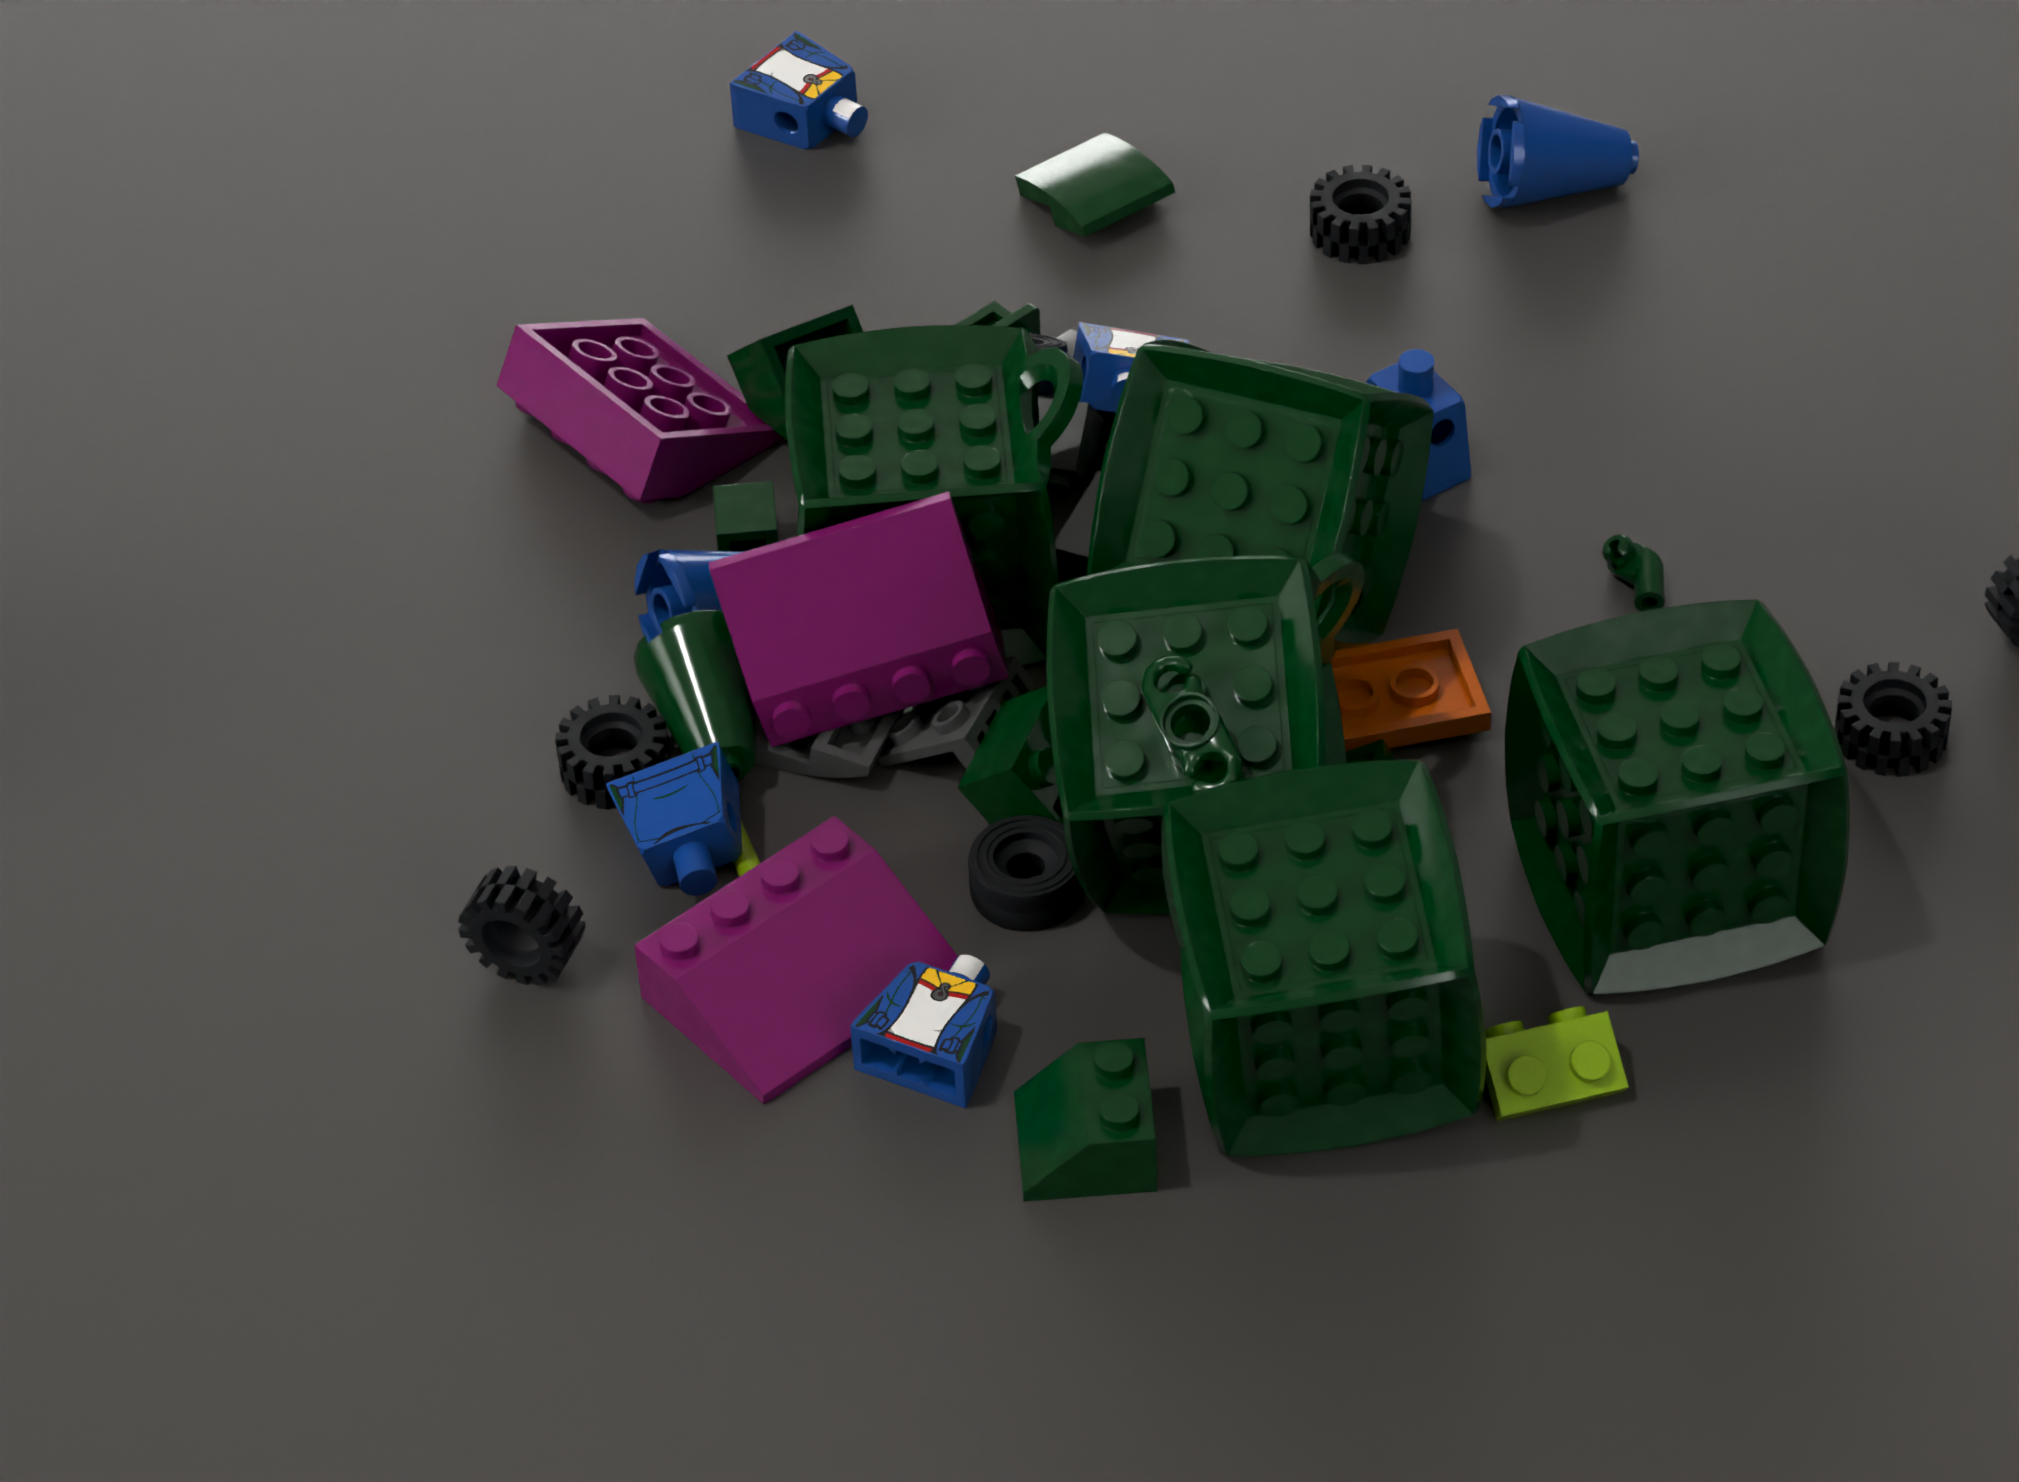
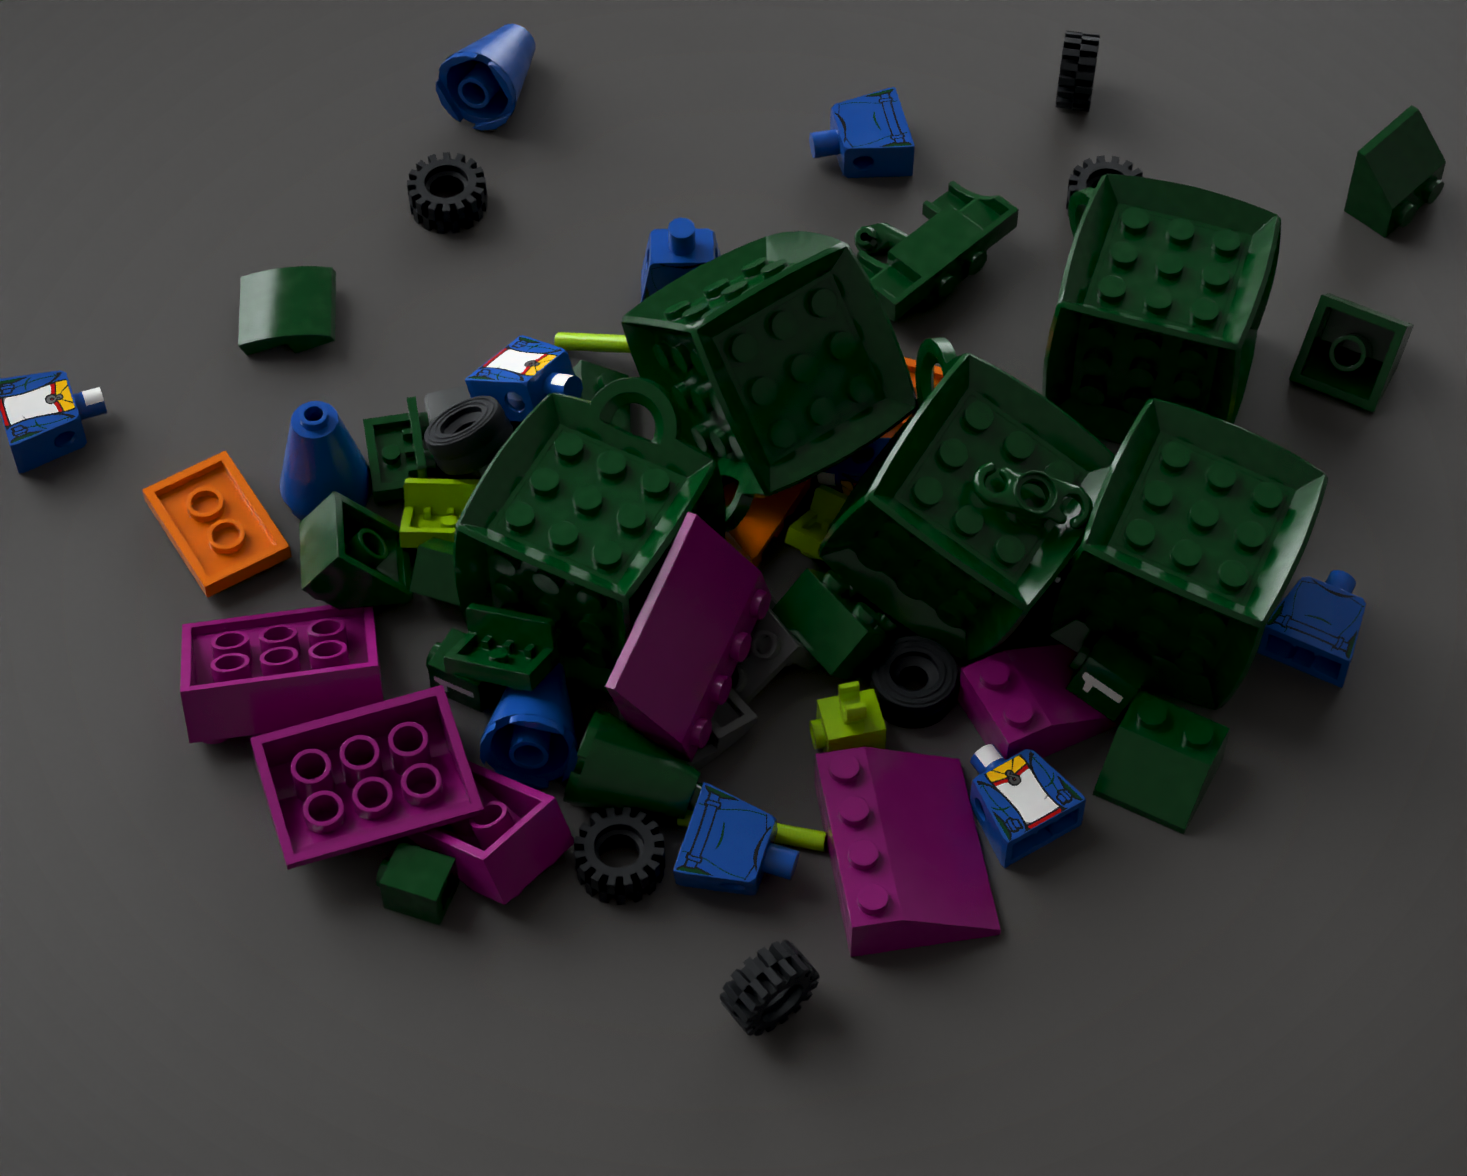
camera: 60 degrees left, 10 degrees up
(462, 622) = (418, 882): none -> dark green brick
(541, 509) = (365, 776): none -> magenta slope
(559, 641) = (506, 844): none -> magenta slope
(746, 513) = (504, 648): none -> dark green bracket
(778, 271) = (216, 523): none -> orange plate
(902, 276) = (321, 460): none -> blue cone
(921, 842) = (848, 720): none -> lime brick
(1084, 975) = (1023, 704): none -> magenta slope
(1157, 1005) = (1107, 675): none -> dark green brick
(1406, 1180) = (1316, 627): none -> blue torso
(1574, 592) = (941, 250): none -> dark green bracket
(1774, 481) = (868, 137): none -> blue torso
(1865, 1033) = (1350, 351): none -> dark green slope

